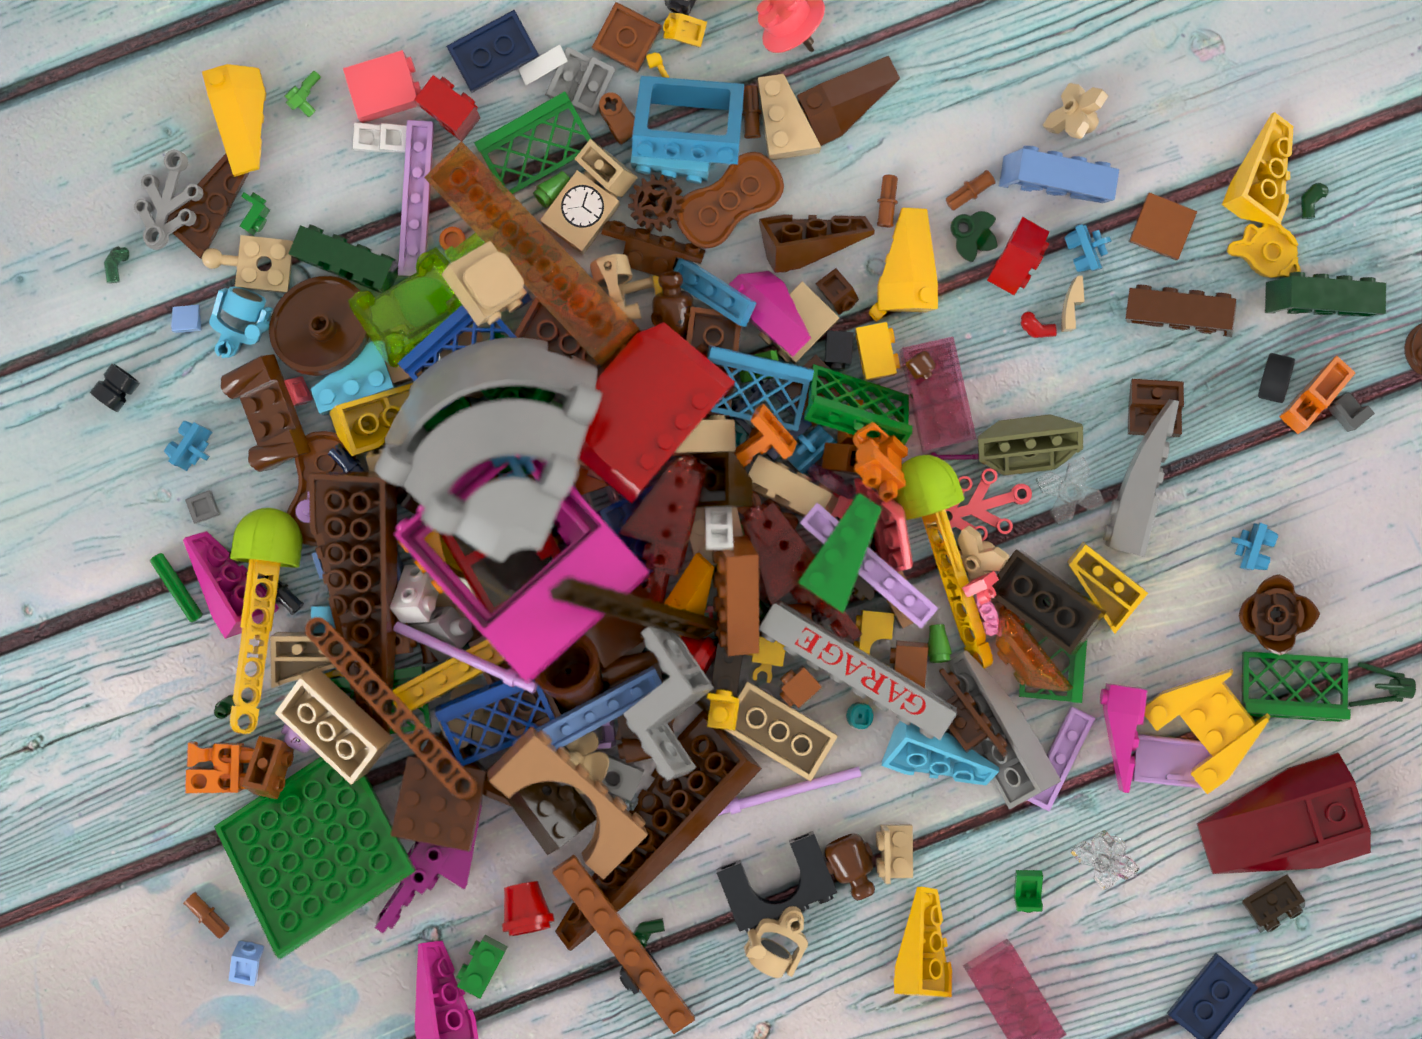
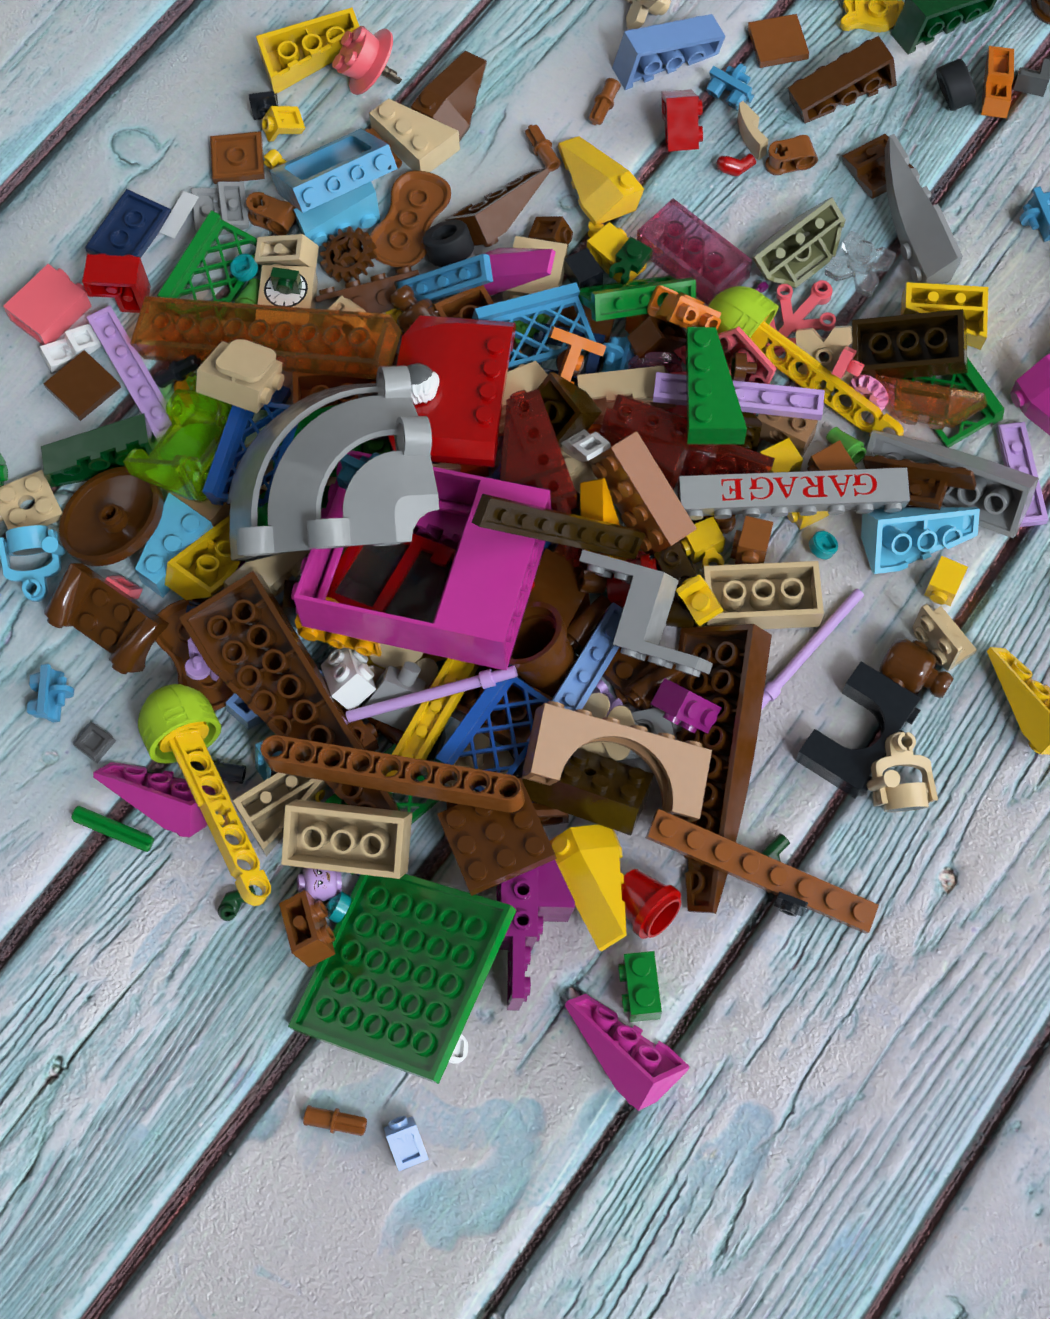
camera: 30 degrees left, 20 degrees down
(227, 770) = (268, 966): orange hips -> none
(304, 762) = (338, 906): none -> teal tile
(368, 182) = (82, 385): none -> reddish brown tile
(449, 224) = (177, 371): none -> black axle
(497, 864) = (591, 870): none -> yellow wedge
(561, 161) = (244, 267): none -> teal tile
(583, 206) = (286, 281): none -> dark green plate
(616, 395) = (423, 383): none -> hair
(651, 788) = (686, 707): none -> magenta brick
(743, 236) = (448, 243): none -> black tyre
(879, 370) = (630, 257): none -> dark green plate
(884, 547) = (740, 367): none -> reddish brown tile
(921, 365) = (663, 228): reddish brown piece -> none
(929, 810) = (945, 581): none -> yellow brick
(976, 237) = (633, 131): dark green plate -> none
(1093, 352) = (794, 154): none -> dark orange piece

